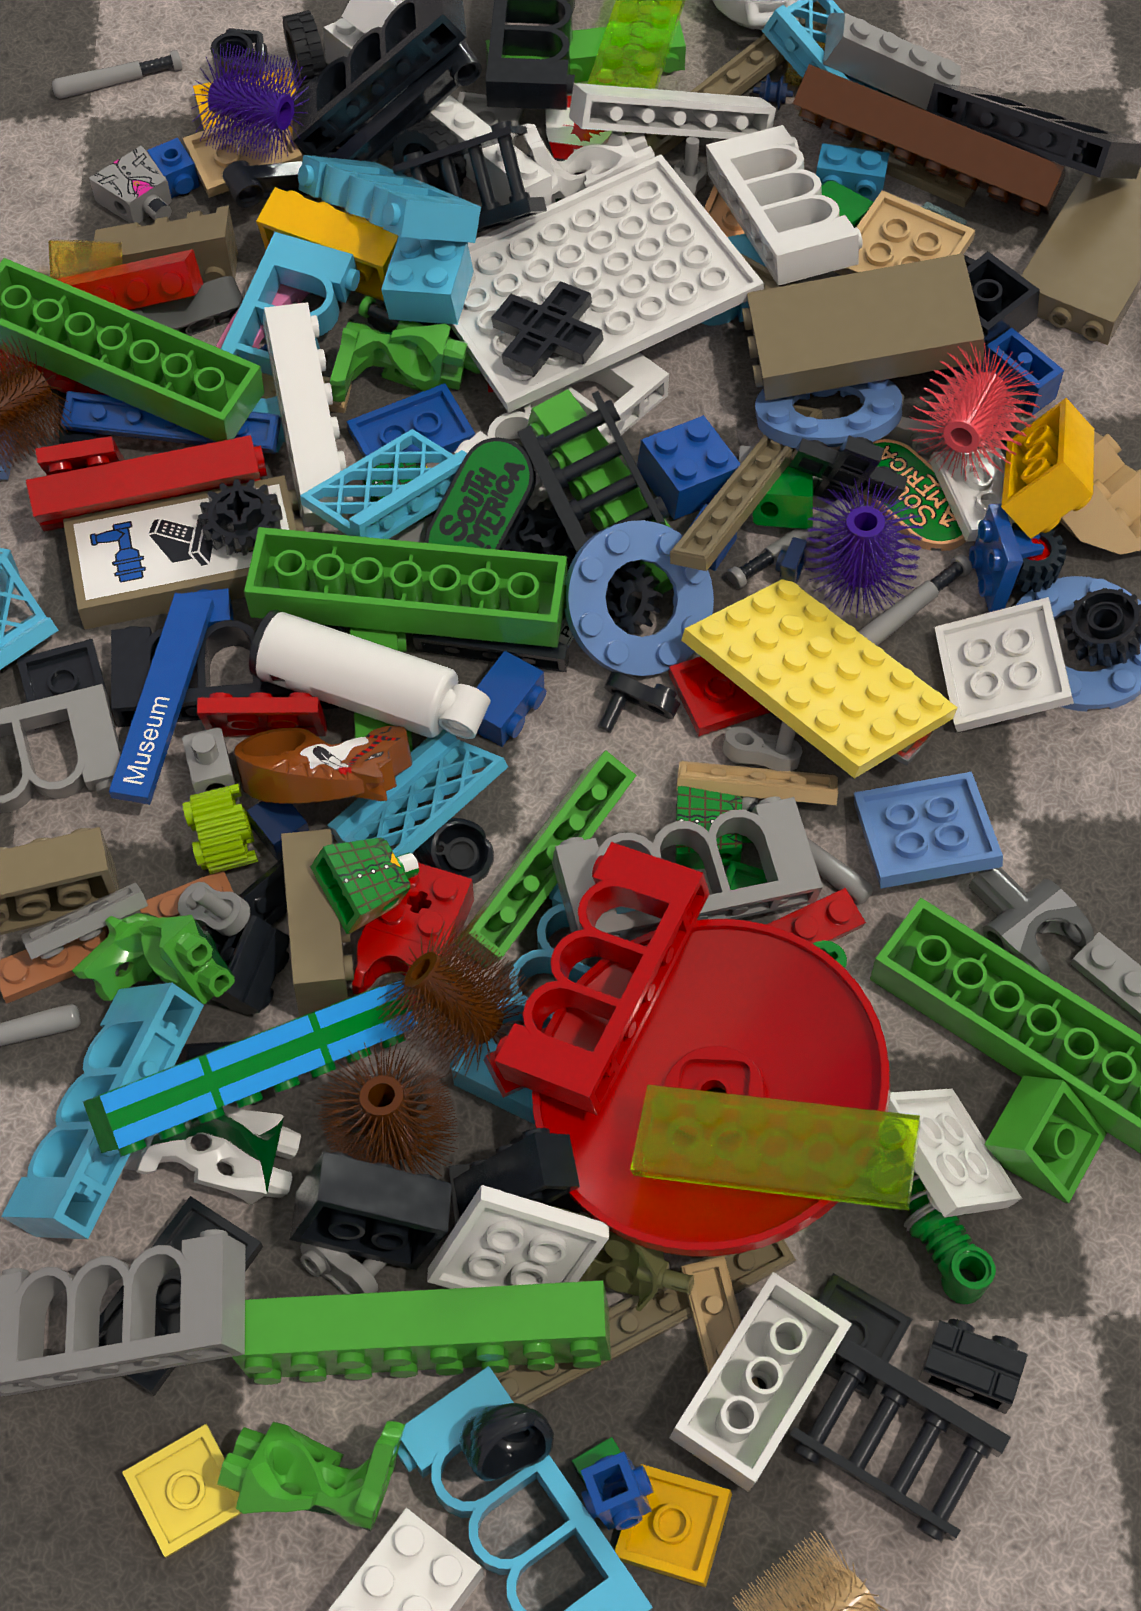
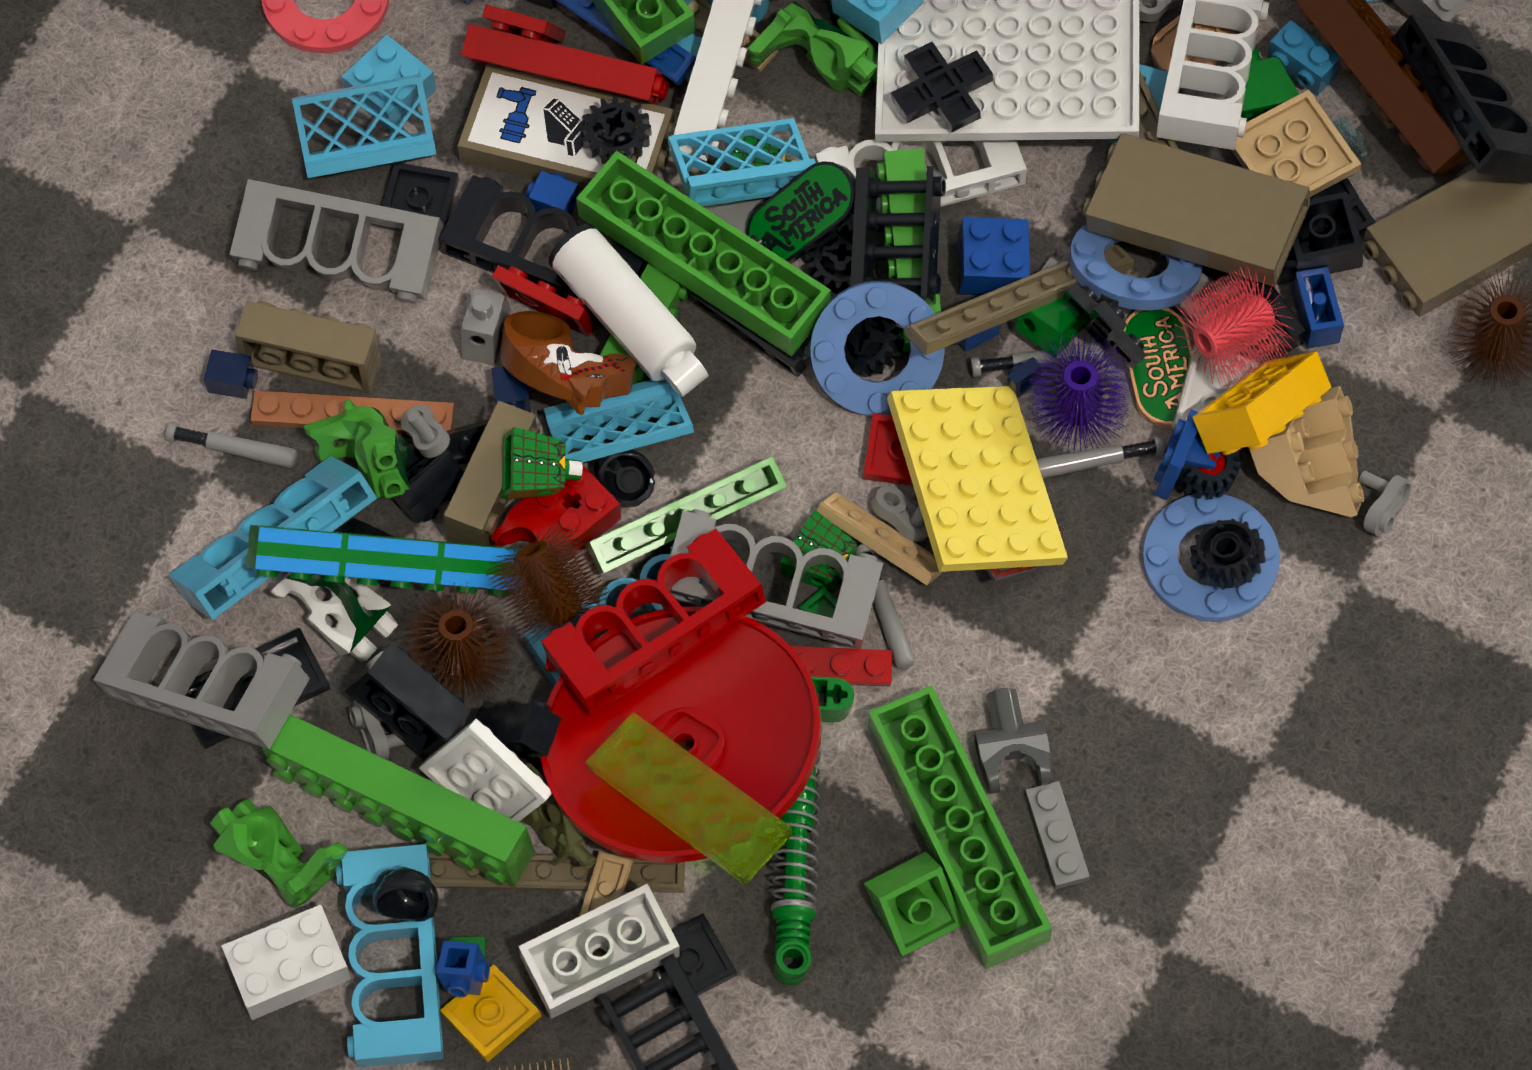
camera: 30 degrees right, 5 degrees up
(83, 922) = (331, 393): light grey plate -> none
(161, 699) = (479, 248): blue tile -> none
(181, 1490) = (186, 816): light yellow plate -> none
(221, 829) = (464, 373): lime brick -> none
(430, 413) = (816, 110): blue plate -> none
(513, 691) = (735, 376): blue brick -> none
(657, 699) = (848, 435): black piece -> none
(927, 830) = (978, 638): medium blue plate -> none
(952, 1155) = (829, 871): white plate -> none
(974, 1365) = (756, 1023): black brick -> none
(1003, 664) = (1127, 542): white plate -> none

